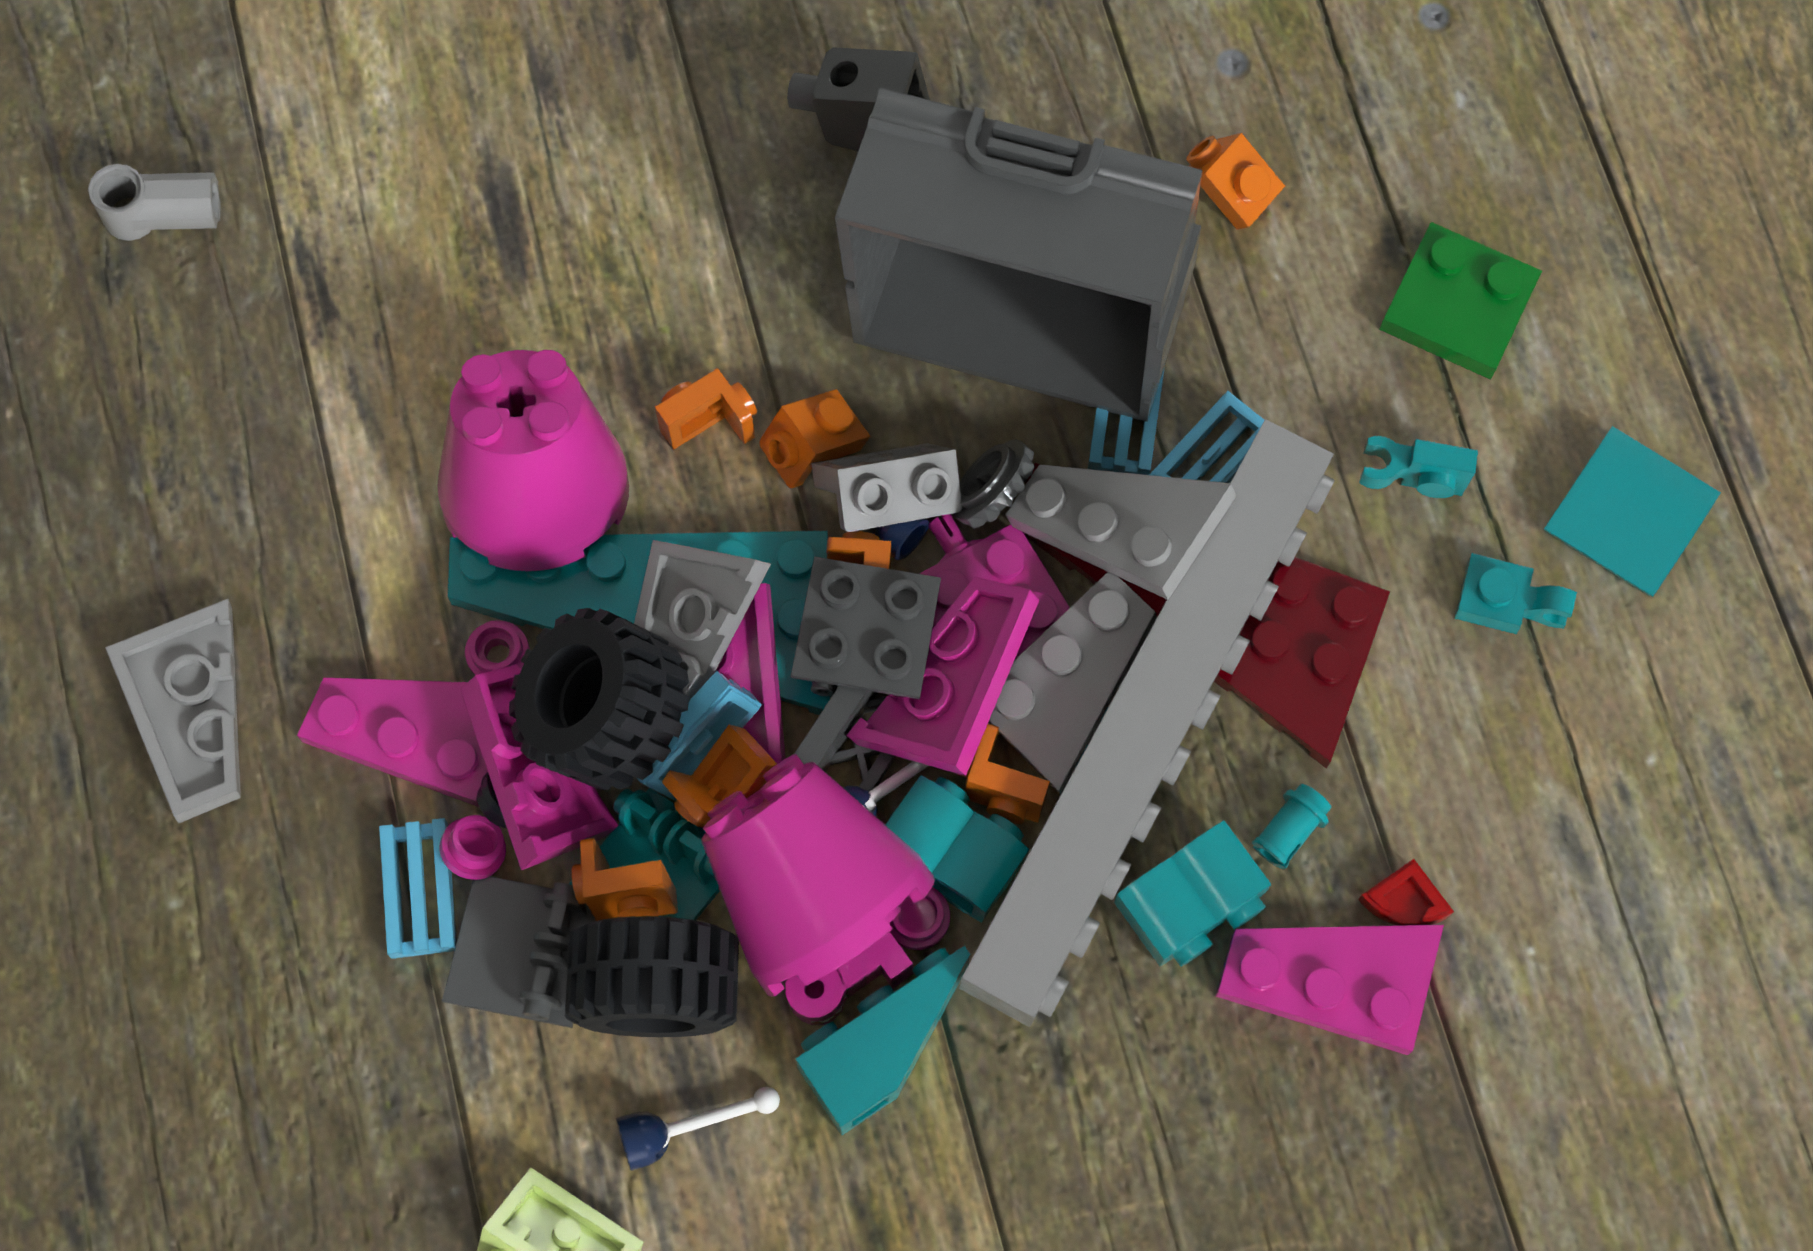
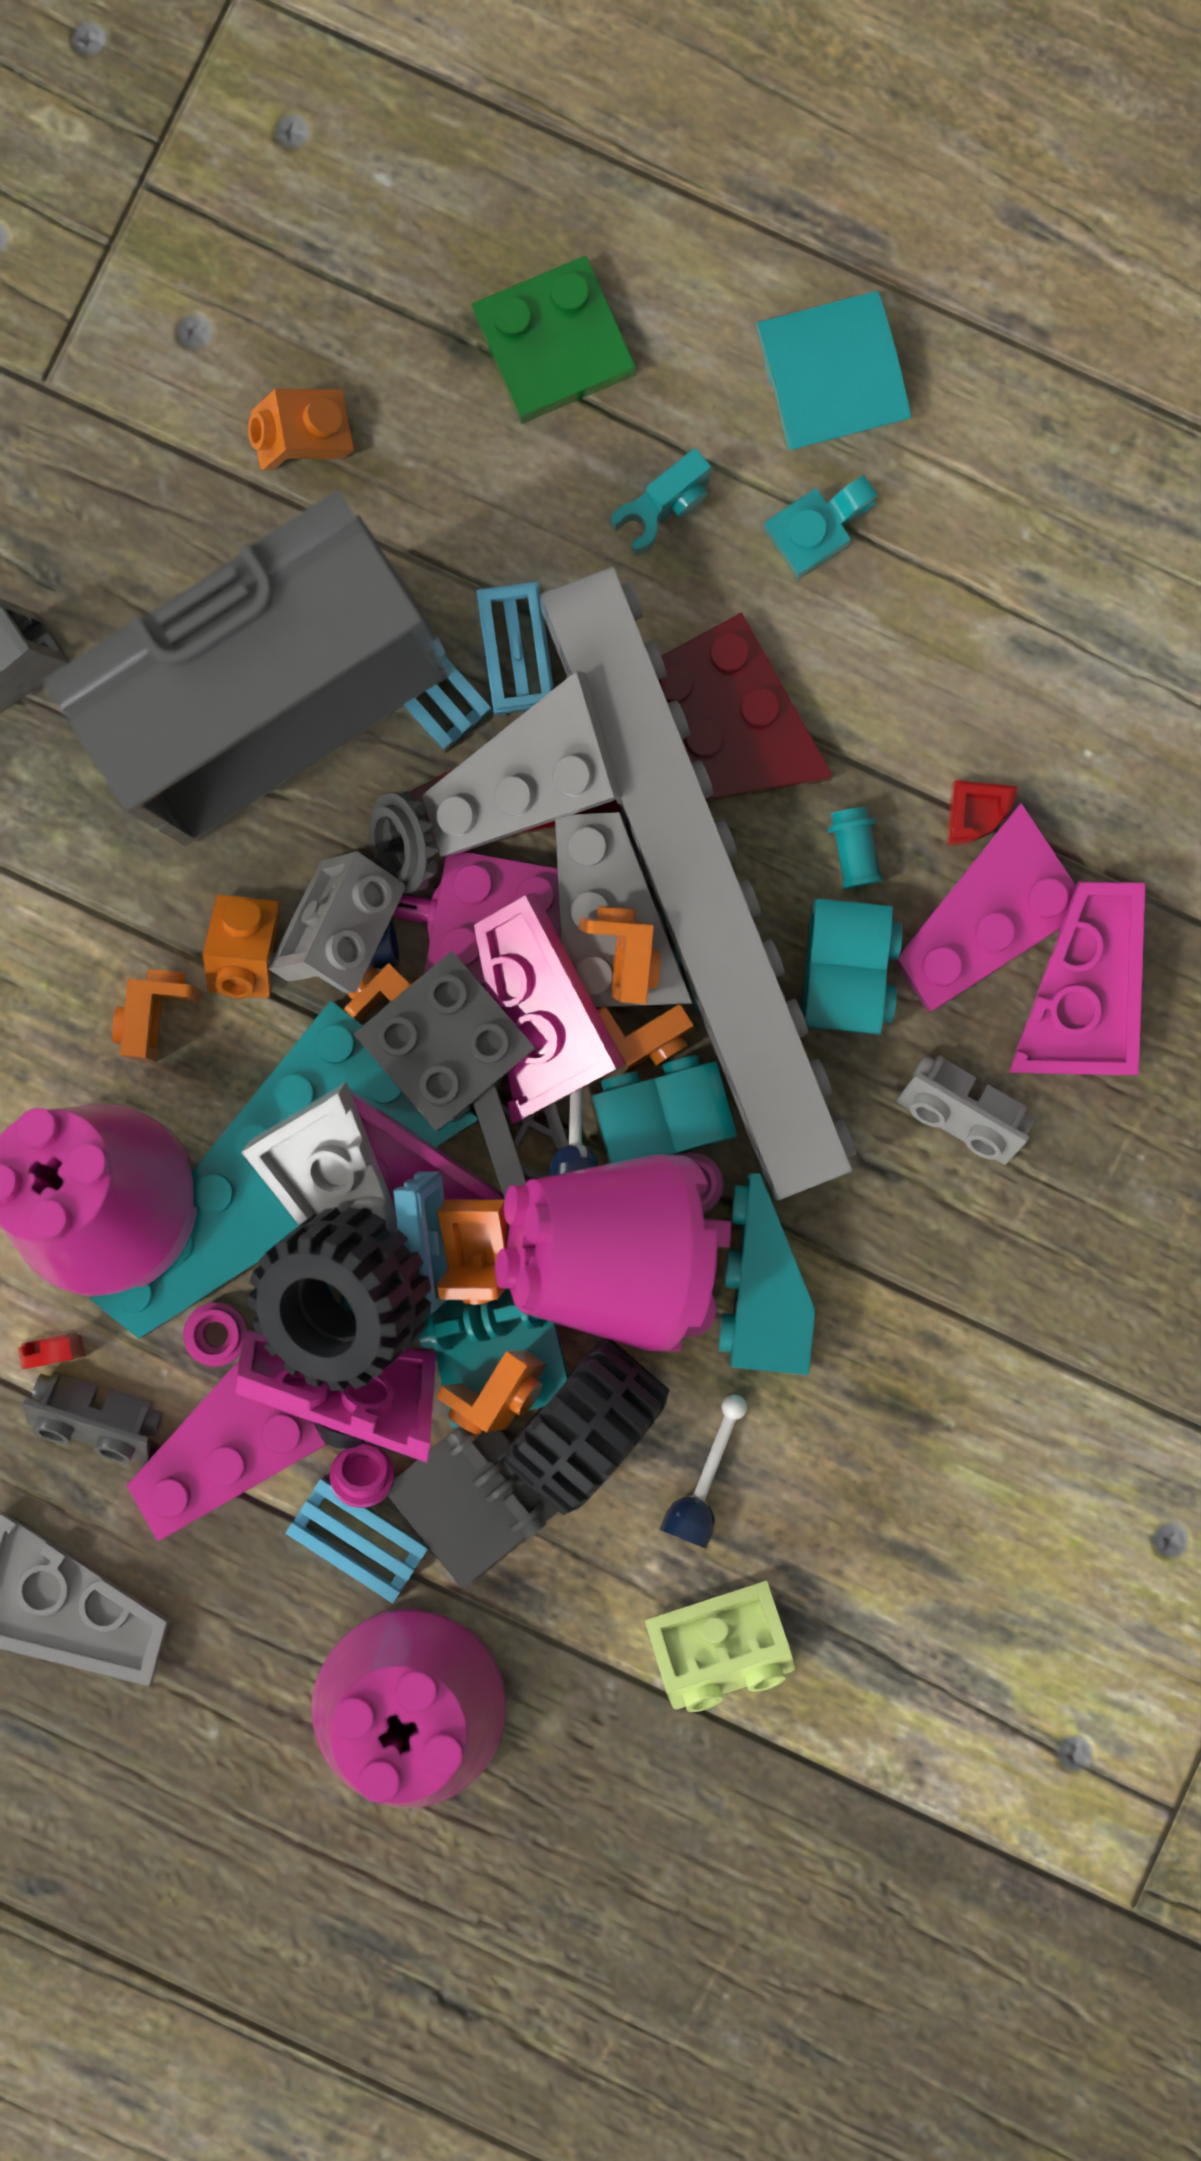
camera: 50 degrees left, 15 degrees up
(336, 1060) = (426, 1674): none -> dark pink cone
(347, 590) = (68, 1414): none -> dark grey hinge
(388, 543) = (51, 1350): none -> red tile
(1050, 714) = (635, 963): none -> orange bracket
(1156, 1055) = (939, 1098): none -> light grey hinge
(1349, 1105) = (1091, 989): none -> dark pink wing

